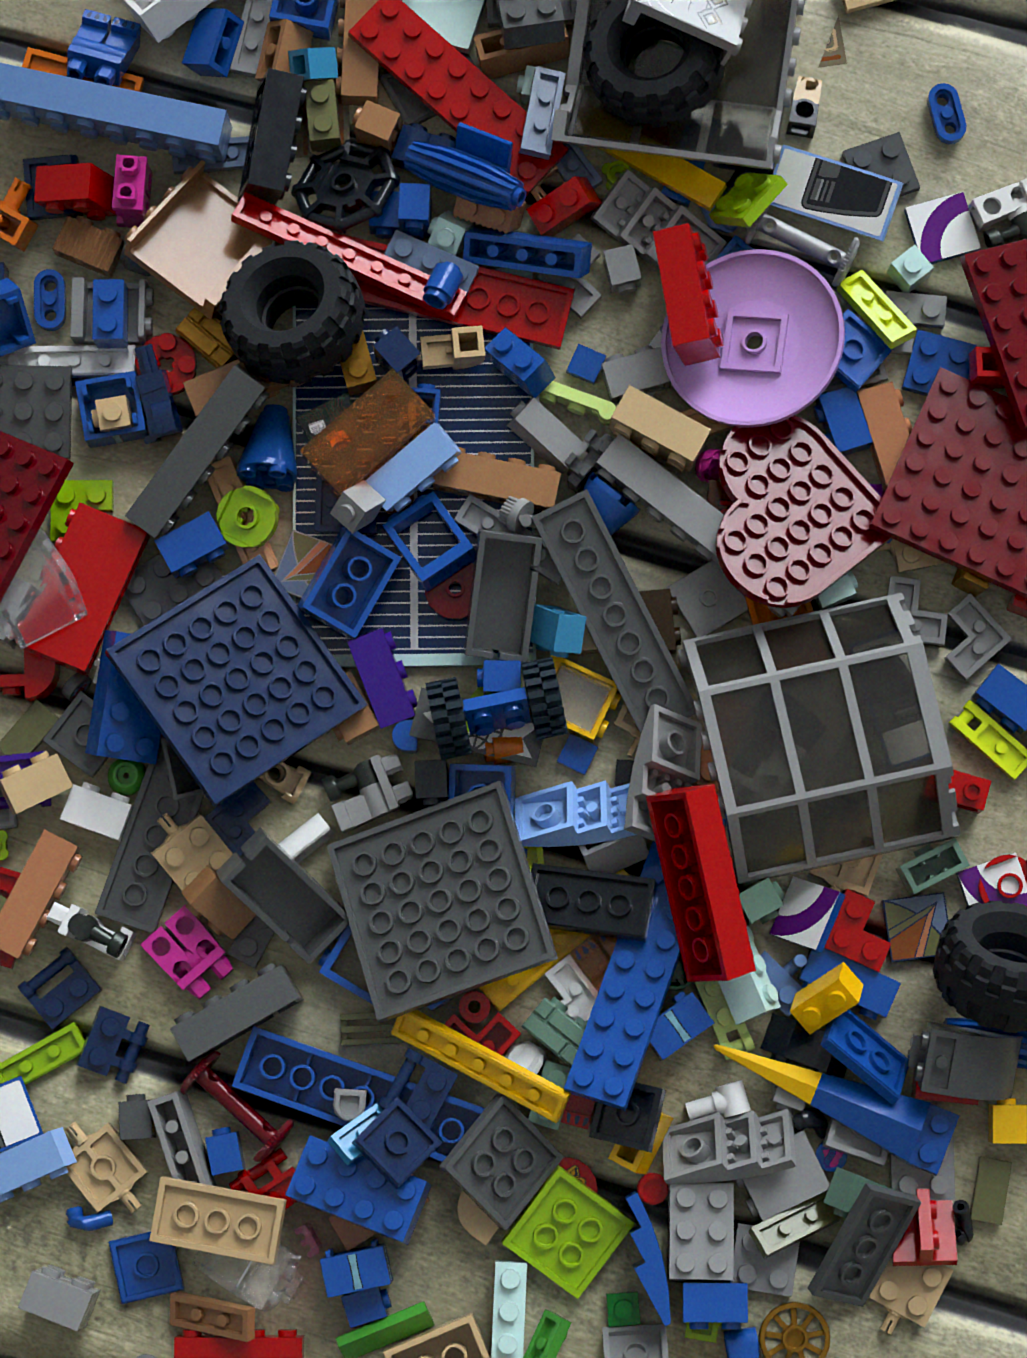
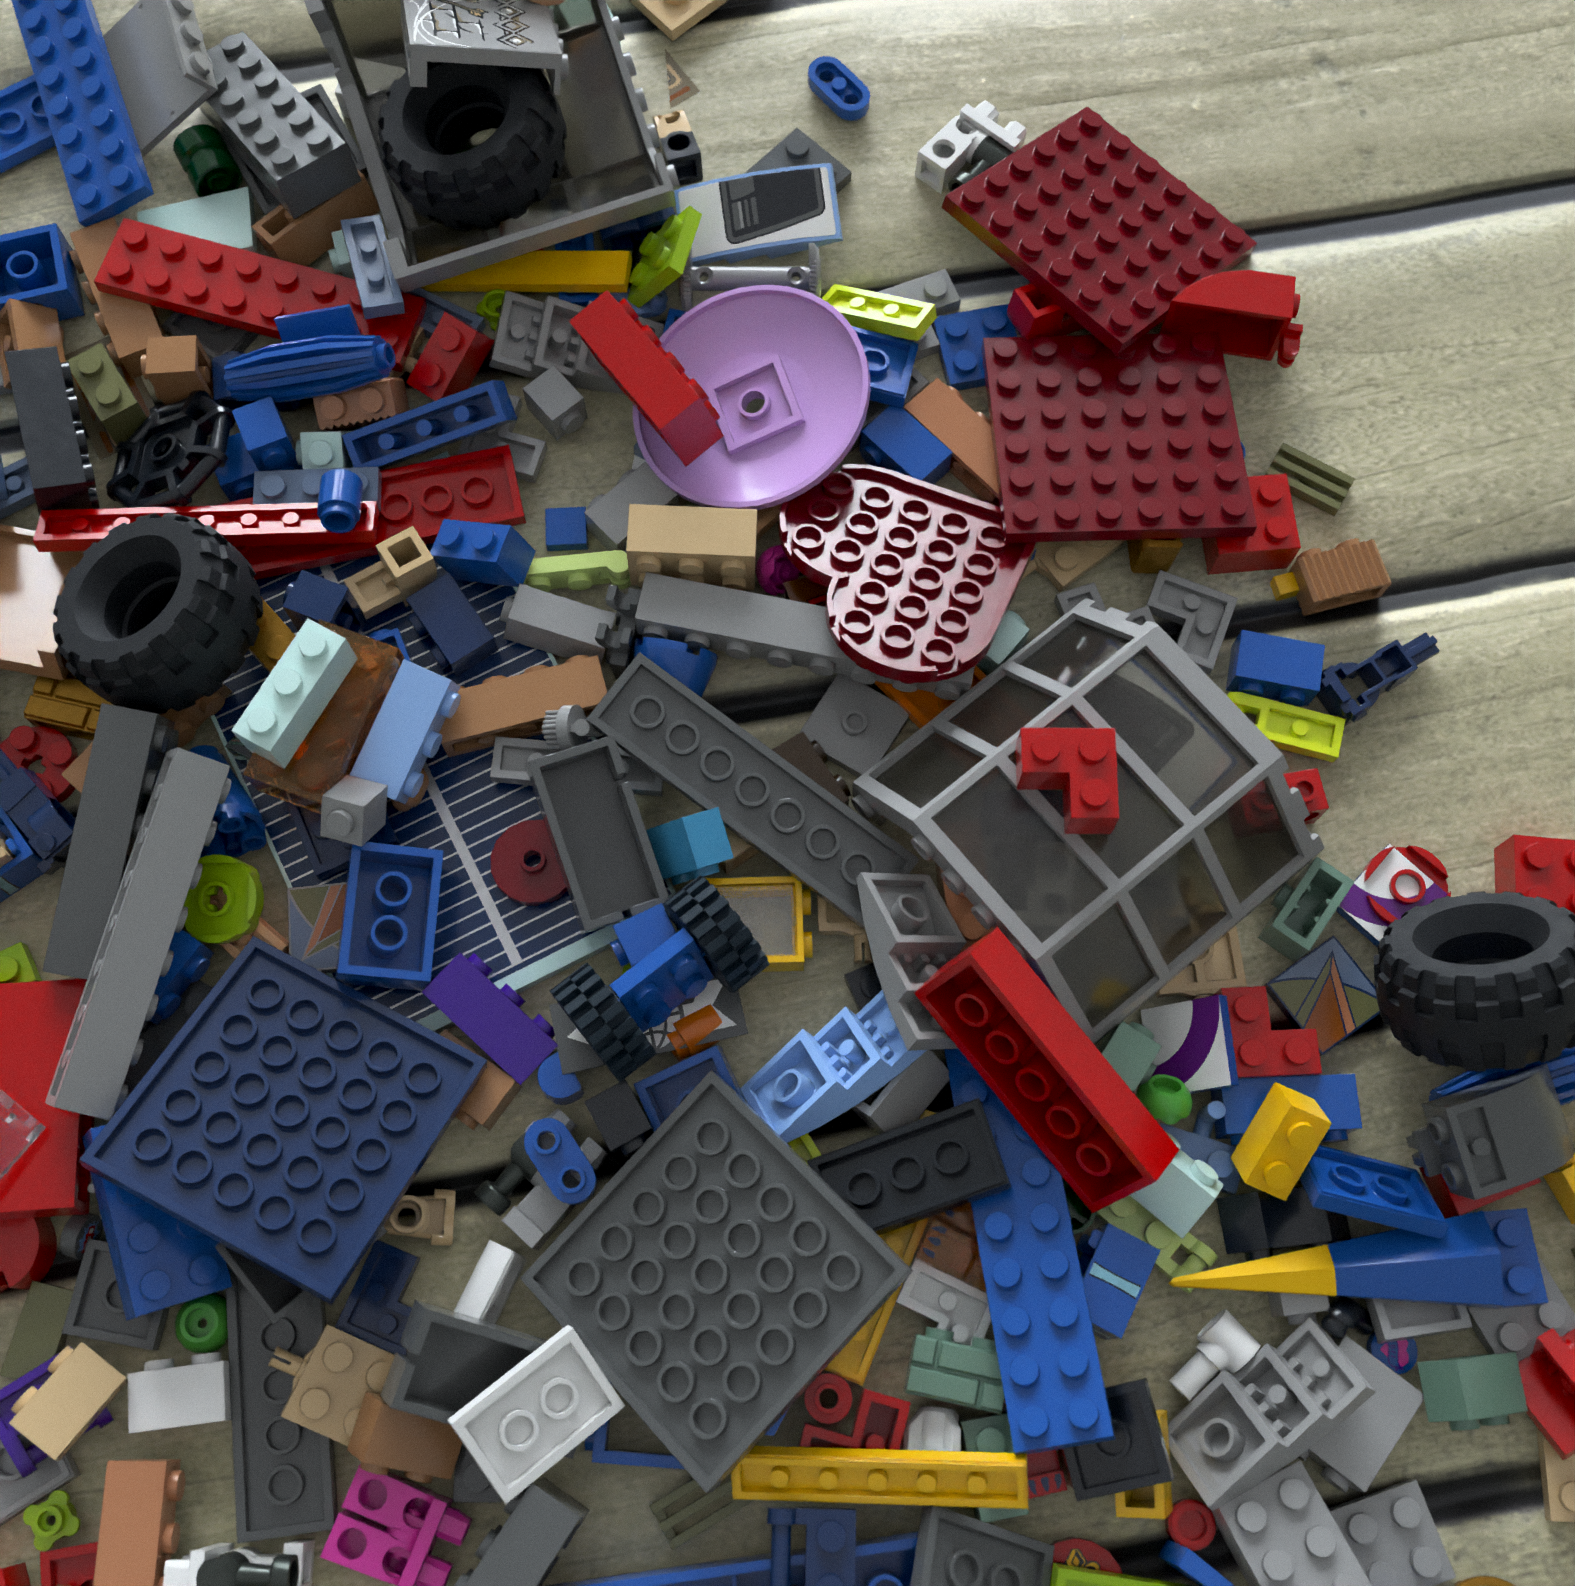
camera: 30 degrees left, 10 degrees down
(194, 521) = (139, 935): none -> light grey brick
(301, 927) = (536, 1413): none -> white plate
(314, 63) = (69, 330): dark azure brick -> none
(356, 418) = (295, 693): none -> light aqua brick
(383, 787) = (560, 1160): none -> blue plate
(444, 565) = (503, 836): blue window -> none
(476, 400) = (451, 624): none -> dark blue brick
(577, 754) = (791, 993): blue tile -> none
(771, 937) = (1166, 1098): none -> bright green plate
(793, 1225) = (1406, 1477): plate -> none
(818, 711) = (1079, 764): none -> red brick
(864, 1245) = (1517, 1453): dark grey plate -> none
(910, 269) = (889, 256): light aqua brick -> none
(943, 228) = (898, 205): tile -> none

